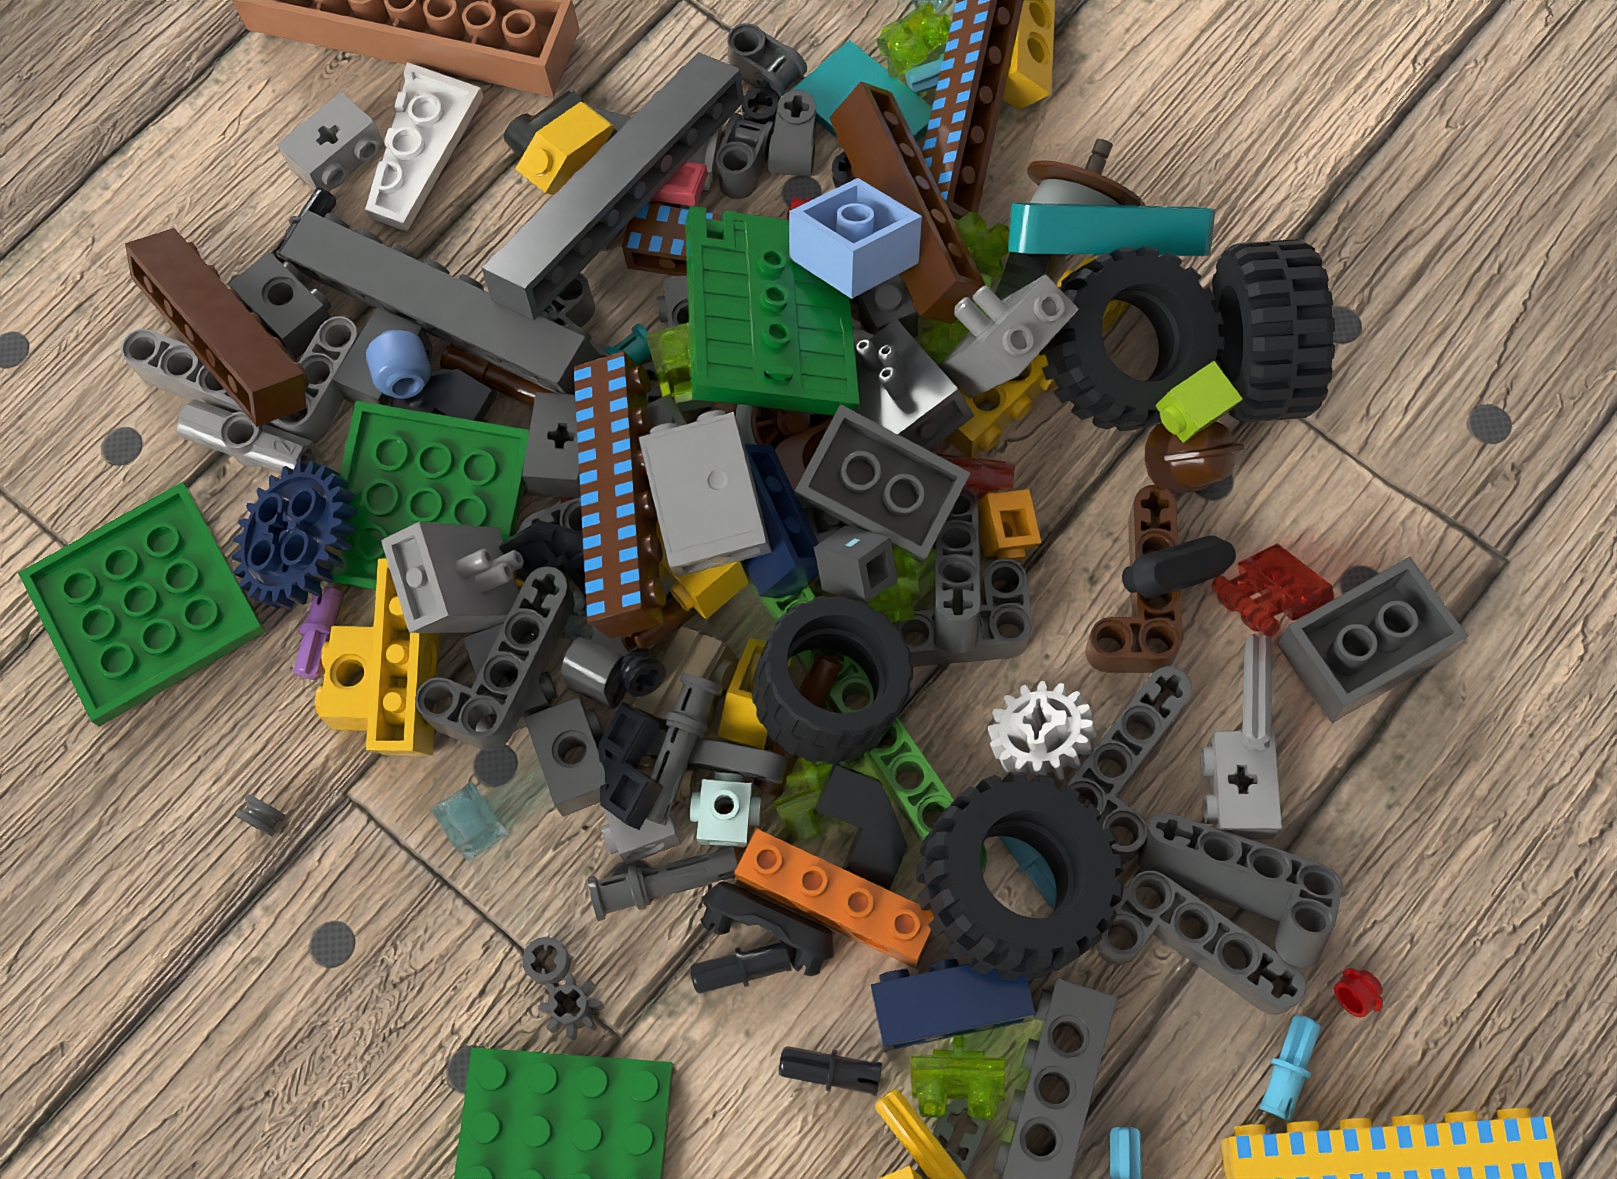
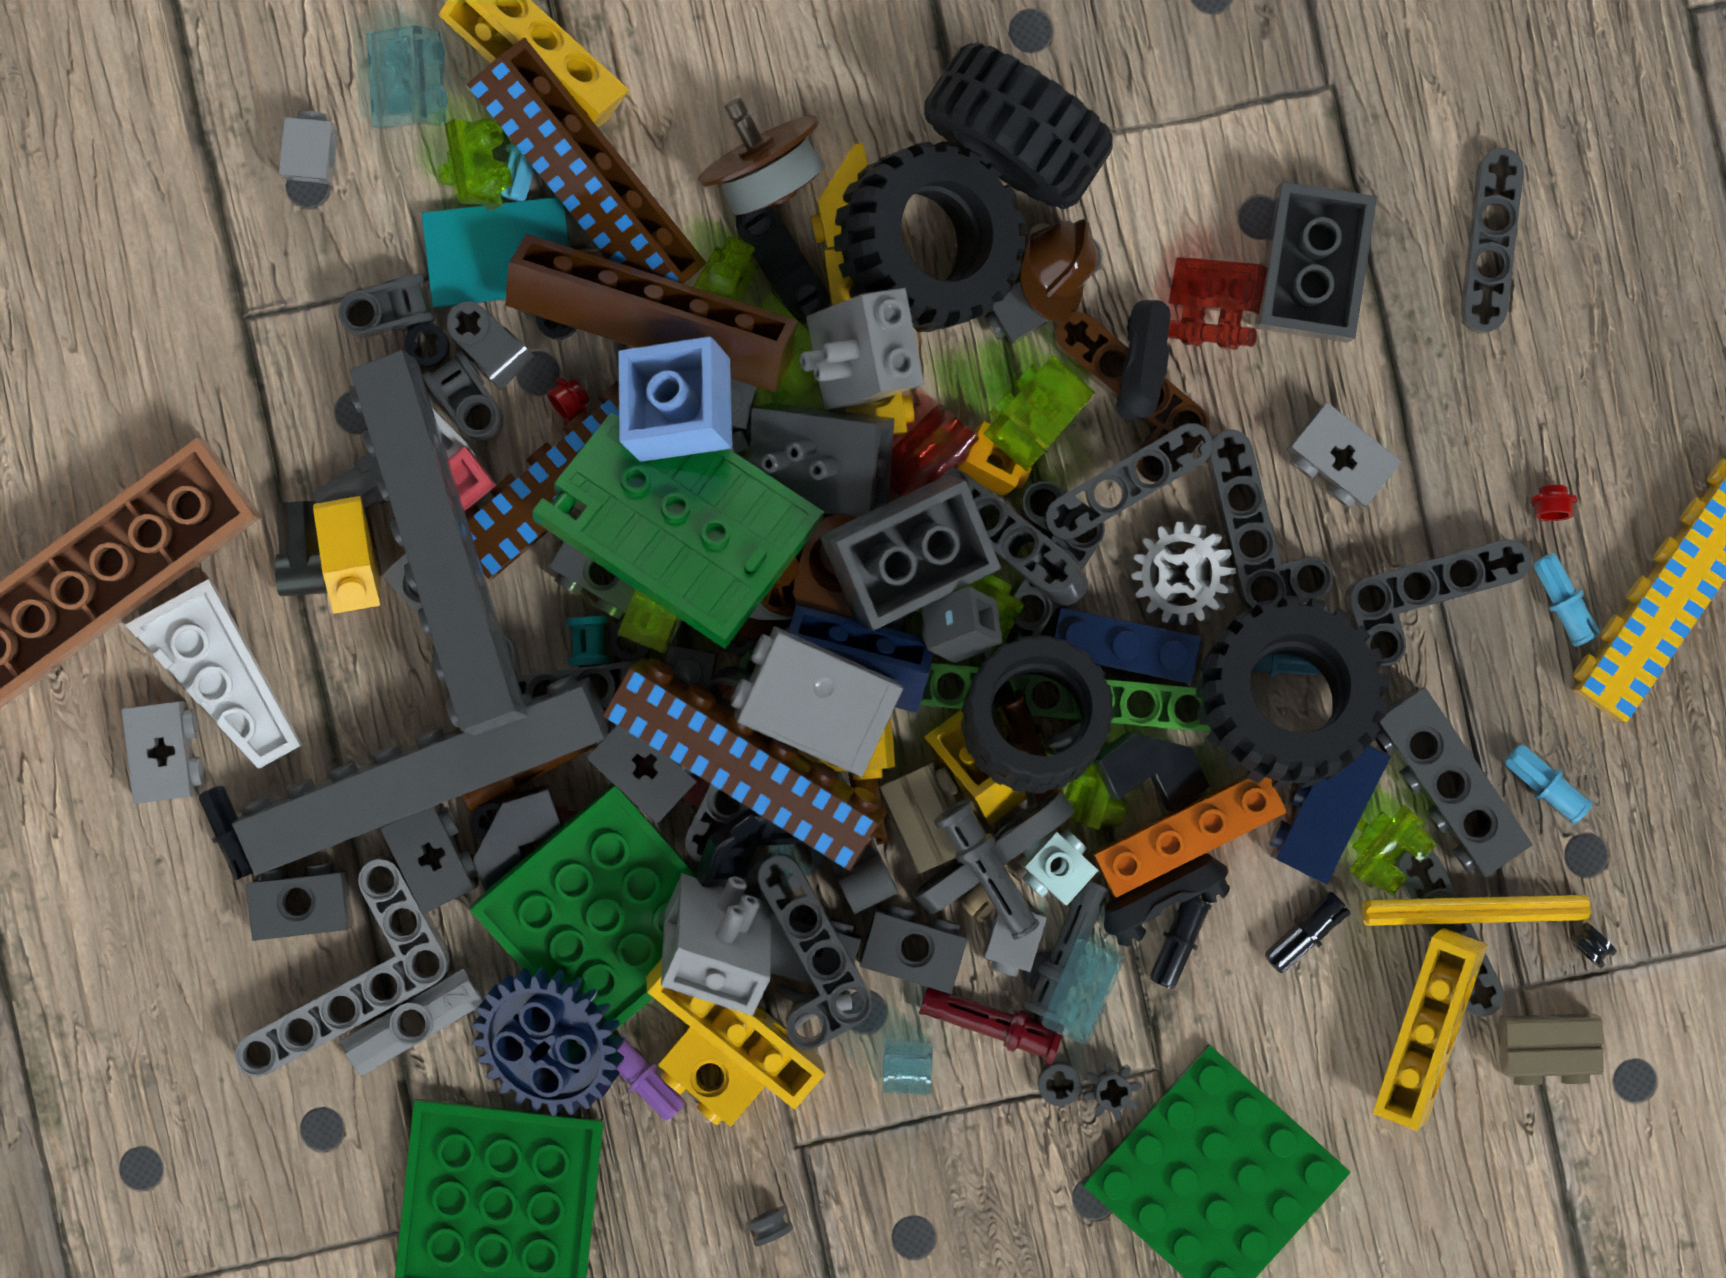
camera: 60 degrees left, 20 degrees up
(217, 327) = (292, 978): reddish brown brick -> none
(398, 363) = (464, 851): medium blue head -> none
(564, 886) = (1014, 1029): none -> dark red pin
(628, 790) = (949, 908): black tile -> none
(637, 916) = (1083, 991): none -> clear light blue bracket
(640, 672) = (901, 851): black bush -> none
(946, 727) = (1129, 645): none -> dark blue brick
(1070, 522) = (1039, 412): none -> clear neon green brick
(1073, 631) = (1131, 486): none -> dark grey beam
(1104, 228) = (828, 176): teal beam -> none
(1126, 460) = (1014, 317): none -> dark grey brick
(1197, 402) = (1037, 243): lime brick -> none
(1251, 877) = (1415, 526): dark grey beam -> none
(1257, 693) = (1289, 389): light grey axle -> none
(1516, 774) = (1499, 242): none -> dark grey beam

